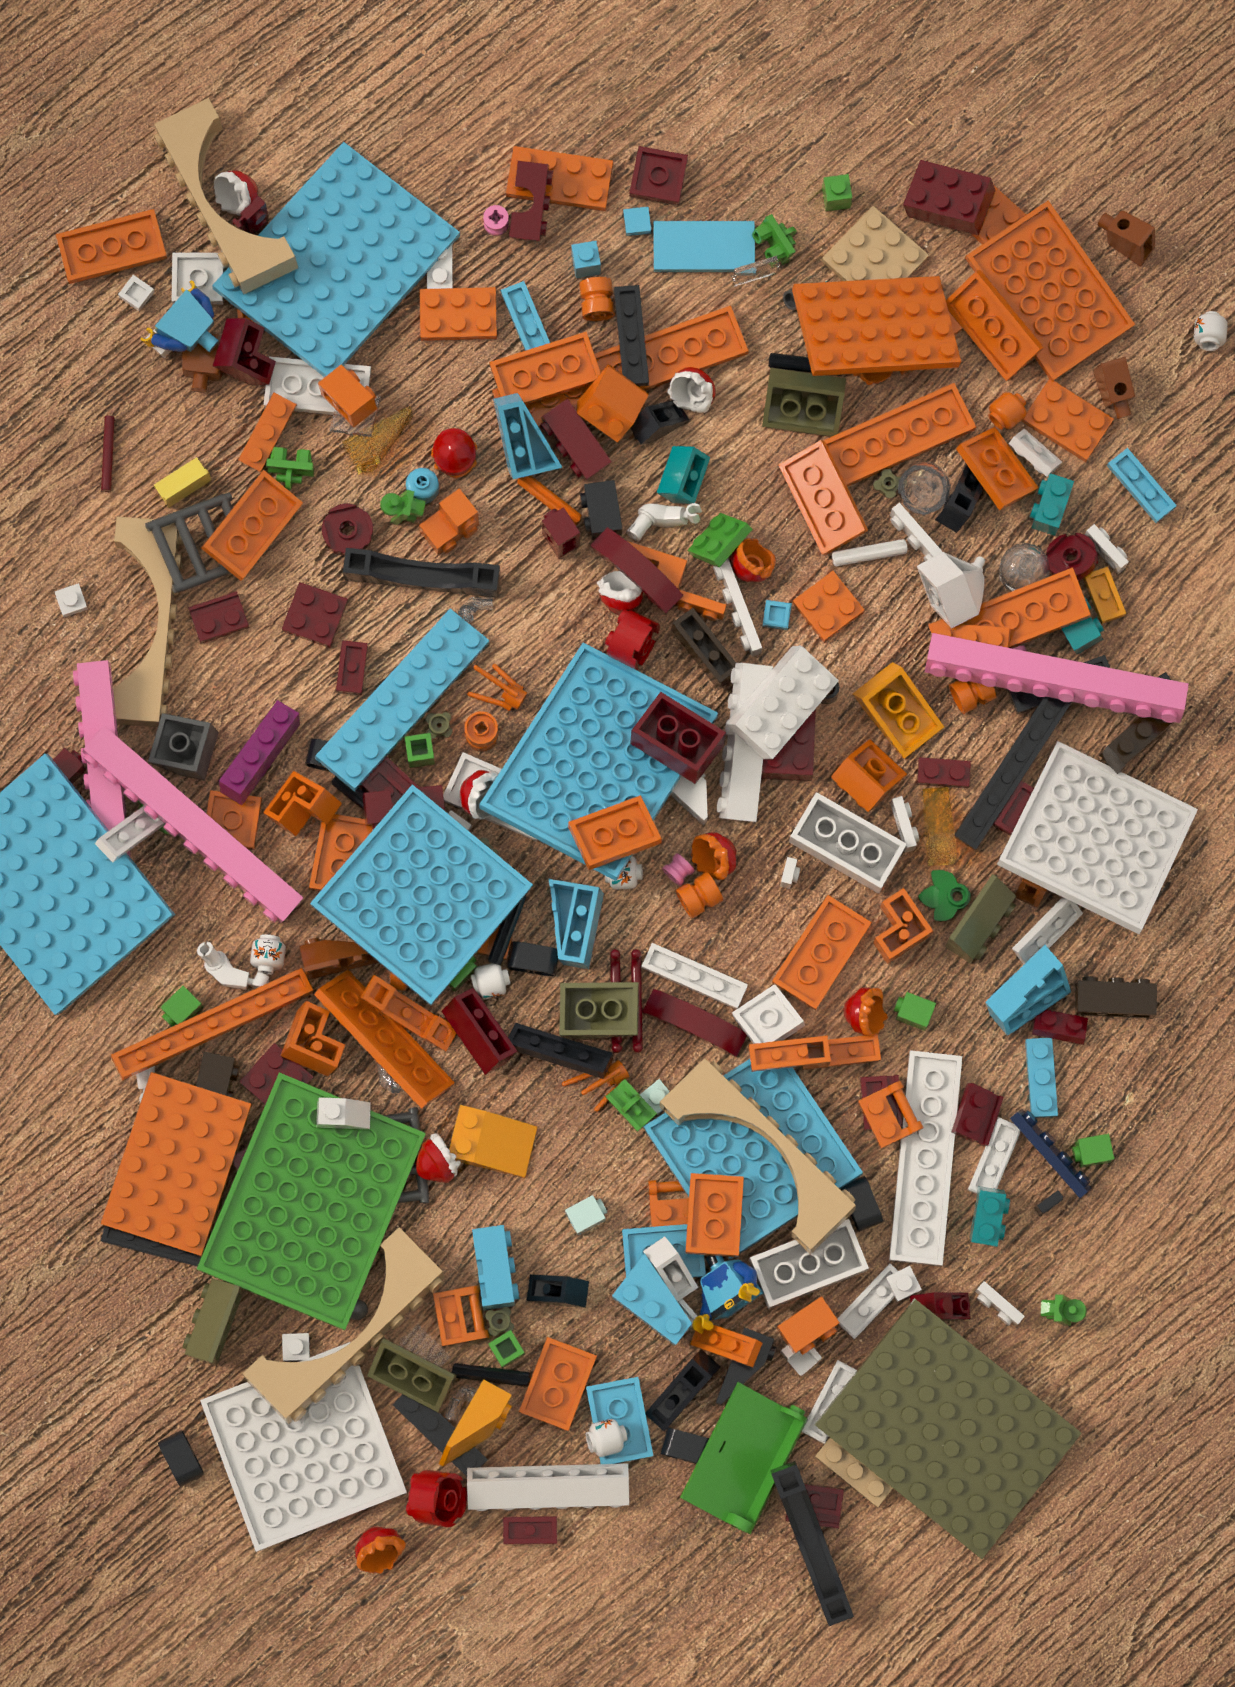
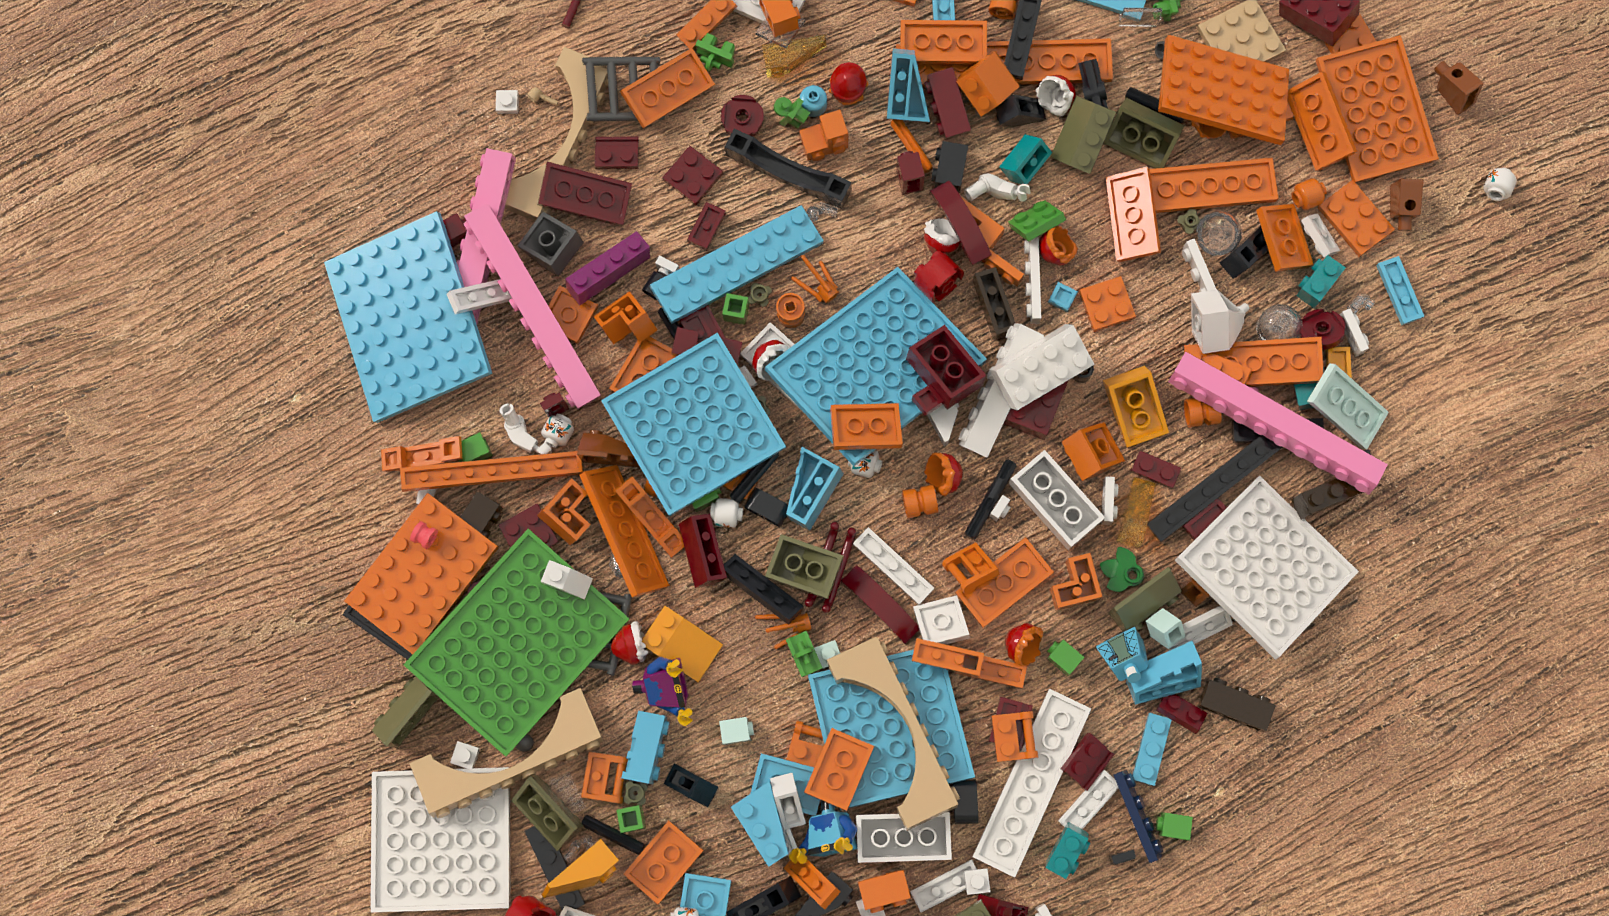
camera: 30 degrees right, 0 degrees up
(101, 581) = (536, 94): none -> tan hand
(126, 1032) = (440, 452): none -> orange slope
(167, 1119) = (423, 535): none -> coral wheel
(181, 1458) = (339, 813): black beam -> none
(182, 482) = (627, 39): light yellow panel -> none
(202, 677) = (584, 194): none -> dark red plate
(255, 926) = (554, 404): none -> dark red plate
(324, 729) = (665, 266): none -> white plate
(493, 1194) = (666, 688): none -> torso
(670, 781) = (927, 400): none -> dark red plate
(678, 869) = (910, 475): bright pink wheel -> none
(734, 374) = (1092, 86): none -> black piece
(738, 426) = (1083, 134): none -> olive slope
(775, 866) = (990, 499): none -> black axle
(783, 941) = (975, 562): none -> orange plate
(869, 552) = (1155, 271): white axle -> none
(979, 985) = (1125, 655): none -> medium azure torso
(1012, 941) = (1165, 628): none -> light aqua brick
(1102, 511) = (1360, 301): none -> clear arm
(1126, 633) = (1347, 406): none -> light aqua plate

